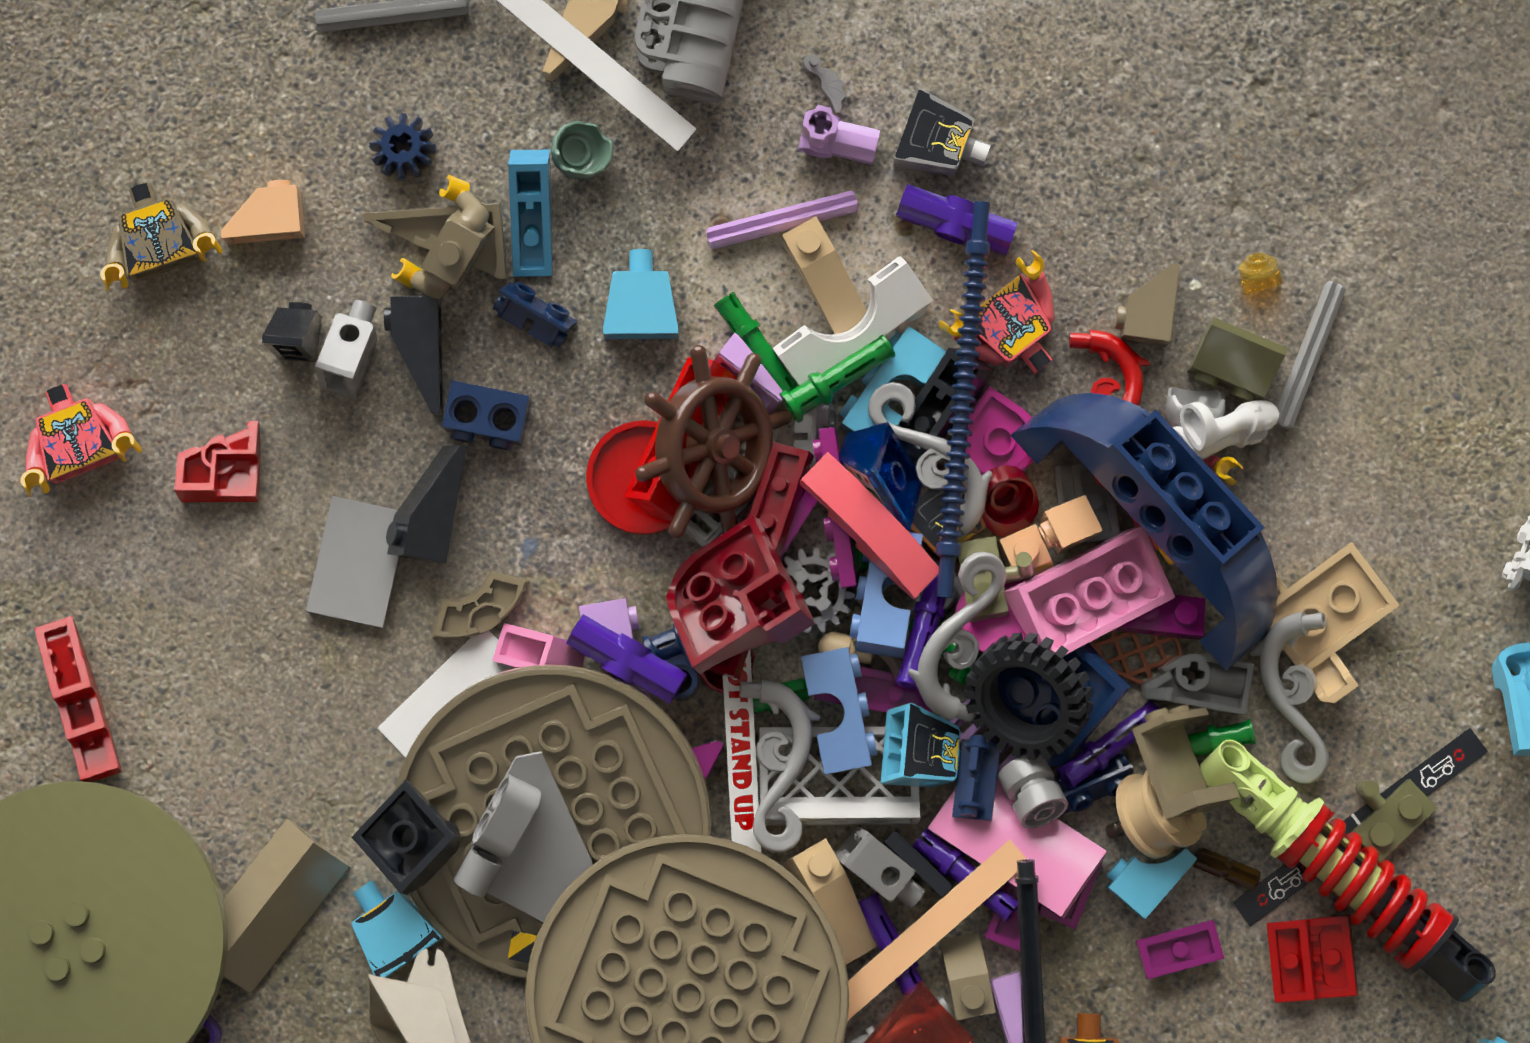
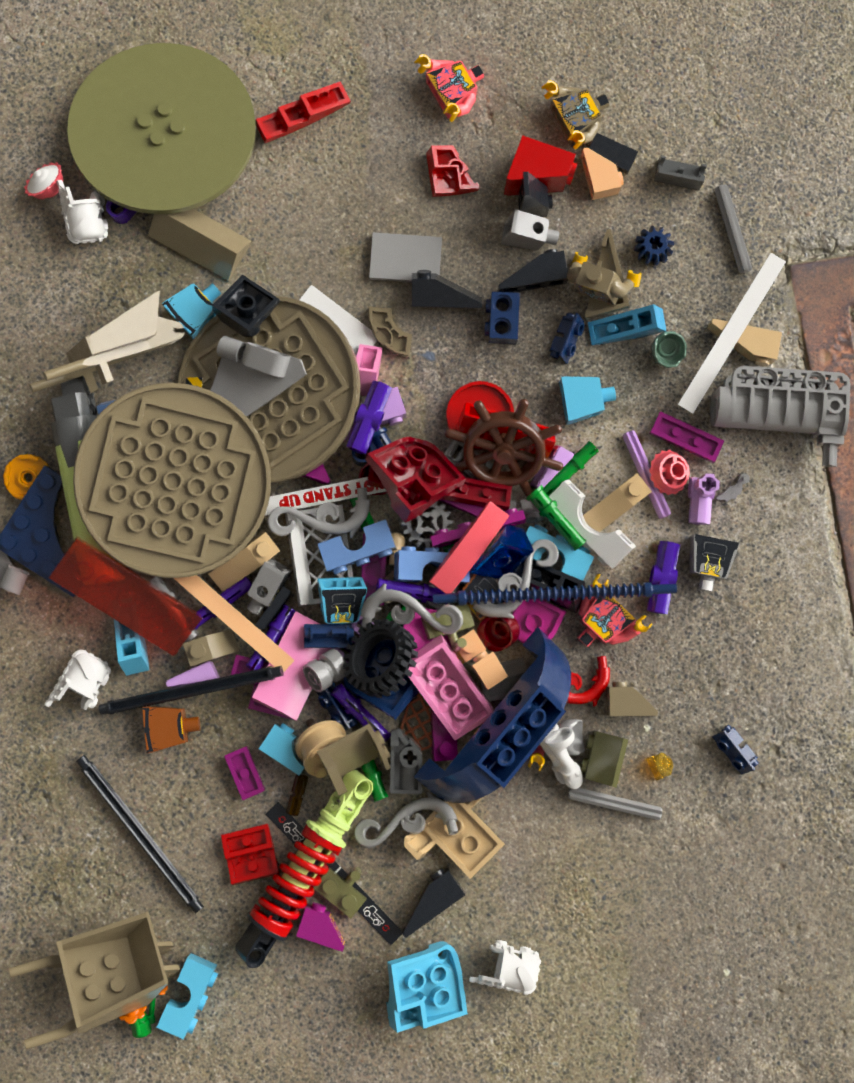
camera: 75 degrees right, 0 degrees up
(231, 188) = (614, 152): none -> black tile
(241, 312) = (545, 162): none -> red slope
(284, 84) = (679, 174): none -> dark grey hinge
(730, 144) = (686, 437): none -> magenta plate
(785, 182) = (669, 472): none -> coral piece
(1266, 141) = (742, 758): none -> dark blue hinge
(1421, 664) = (437, 896): none -> black slope
(1444, 860) = (320, 927): none -> magenta slope

